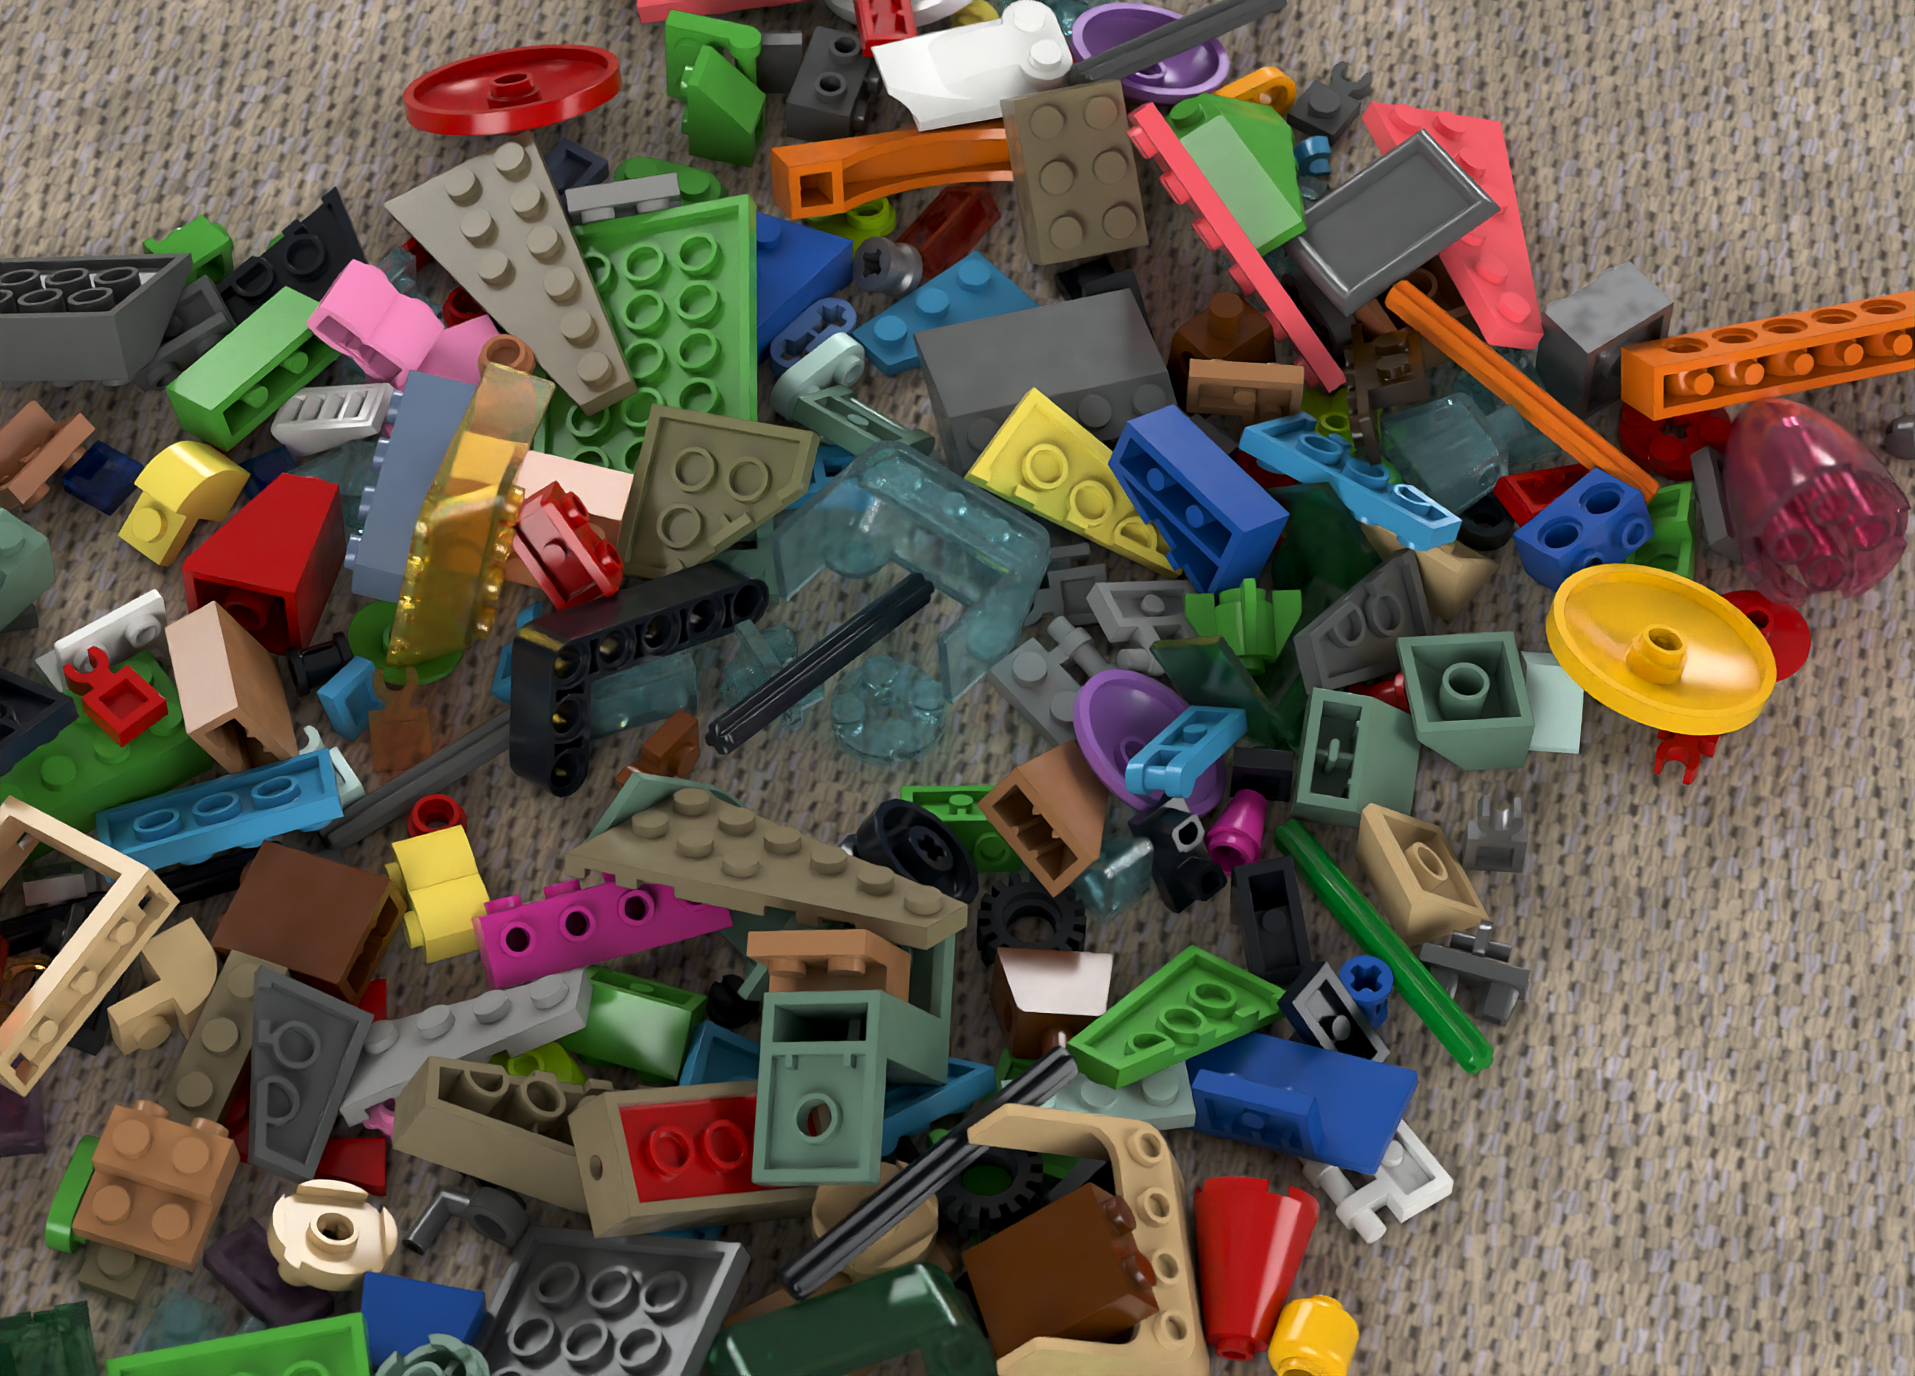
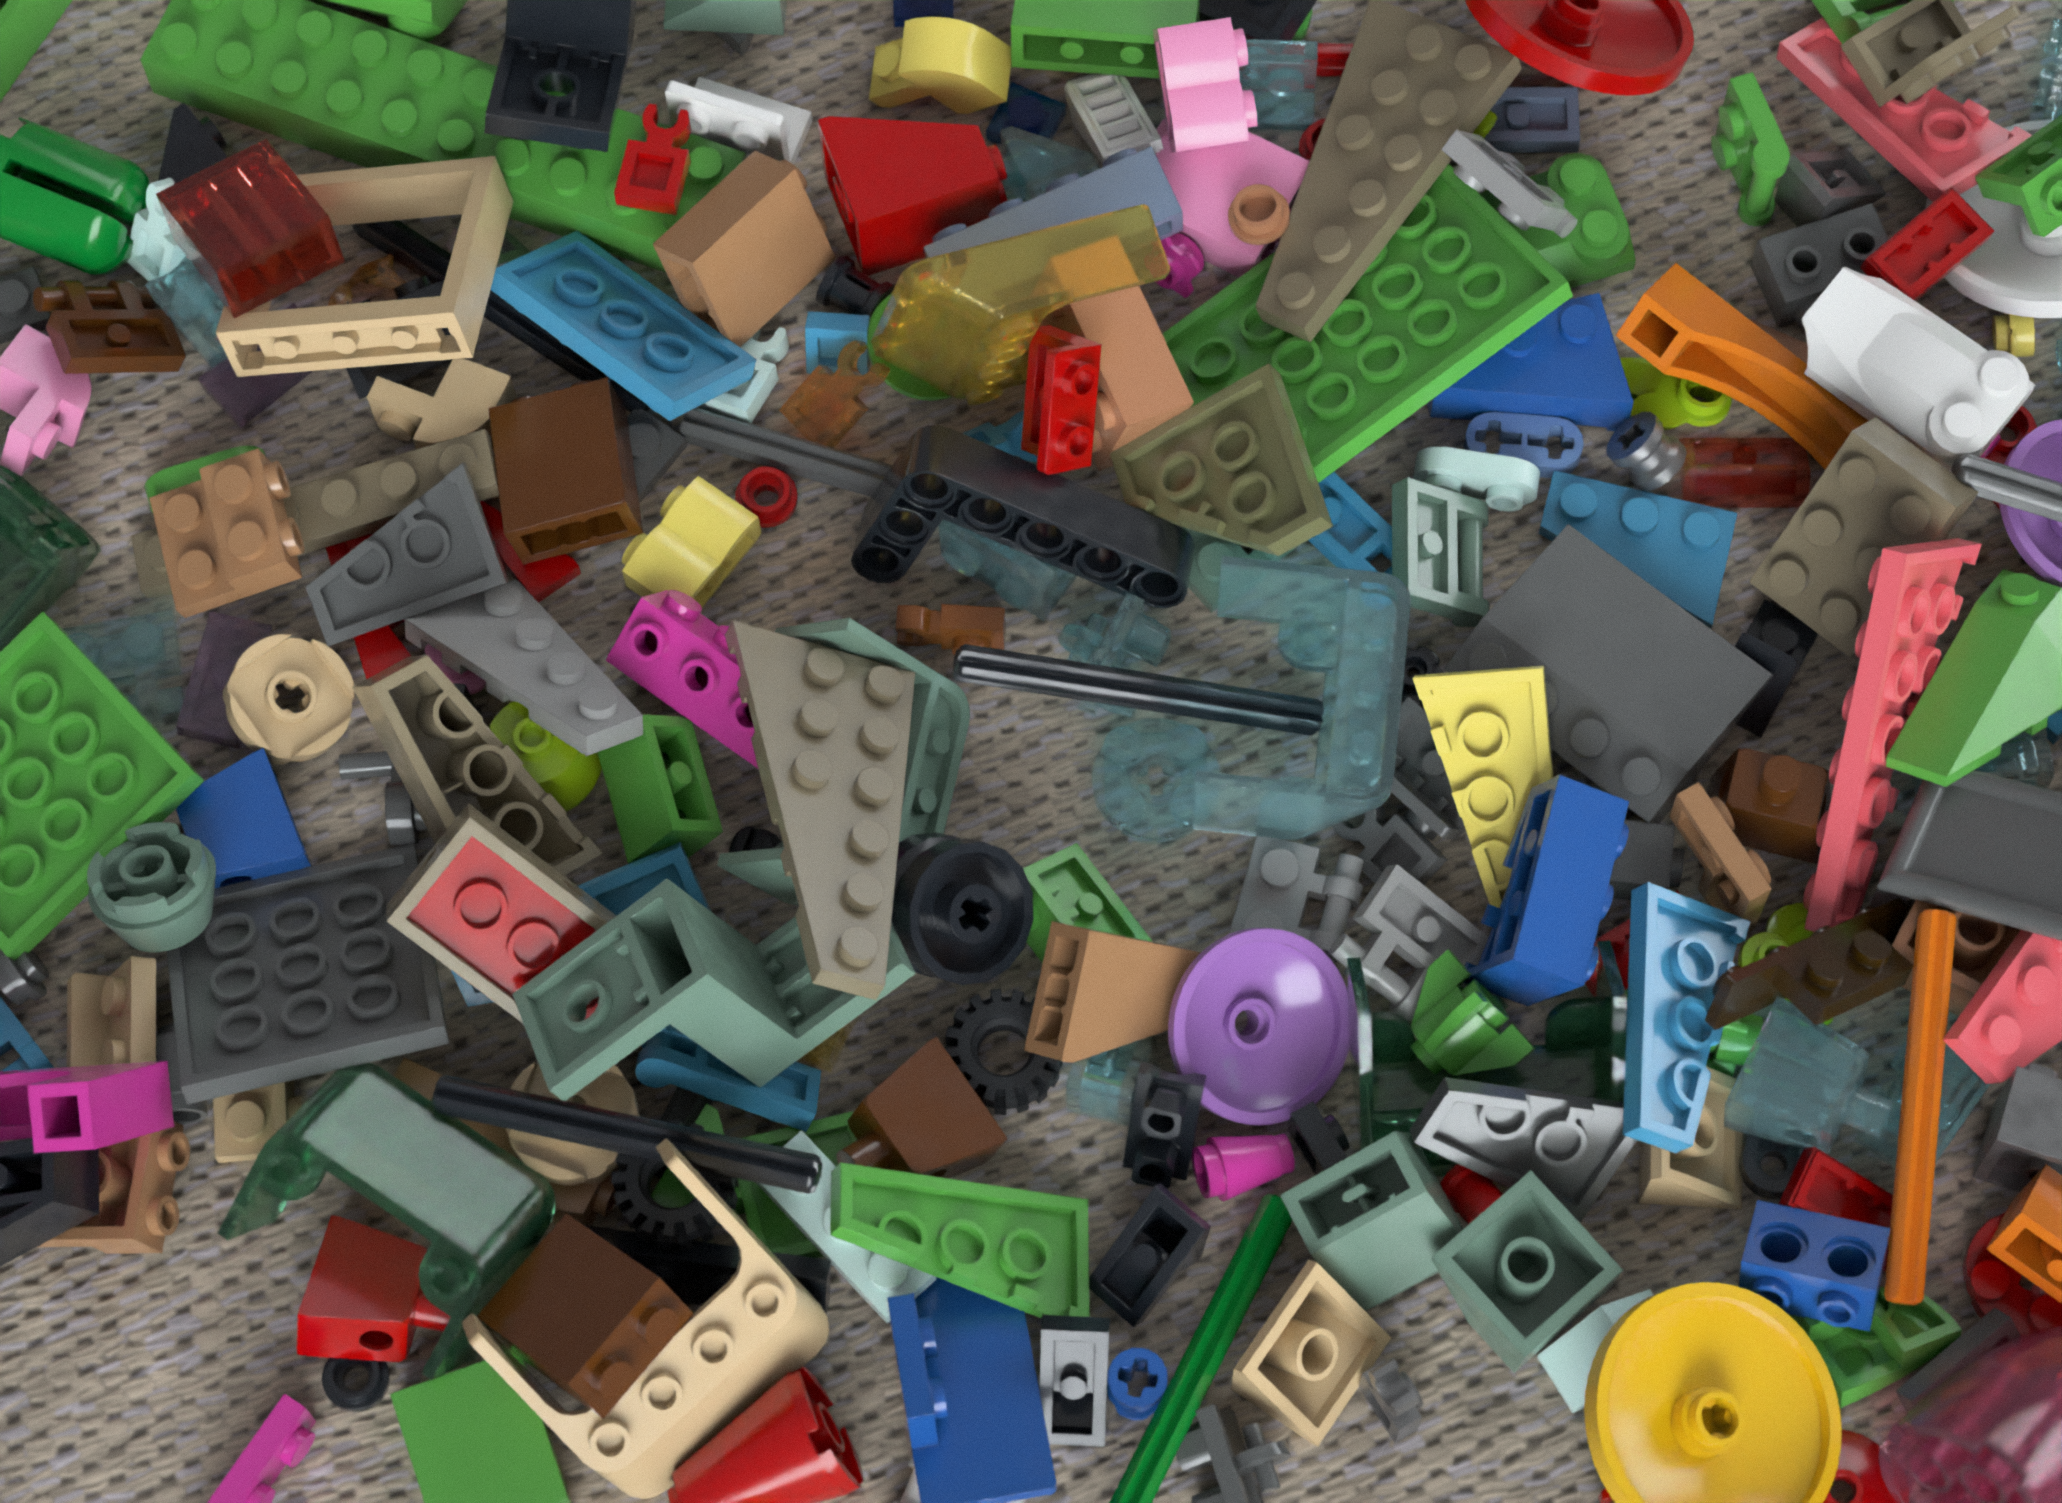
camera: 60 degrees right, 15 degrees up
(723, 110) = (1707, 193): bright green slope -> none
(831, 961) = (756, 913): medium nougat plate -> none
(1185, 750) = (1260, 1061): dark azure plate -> none

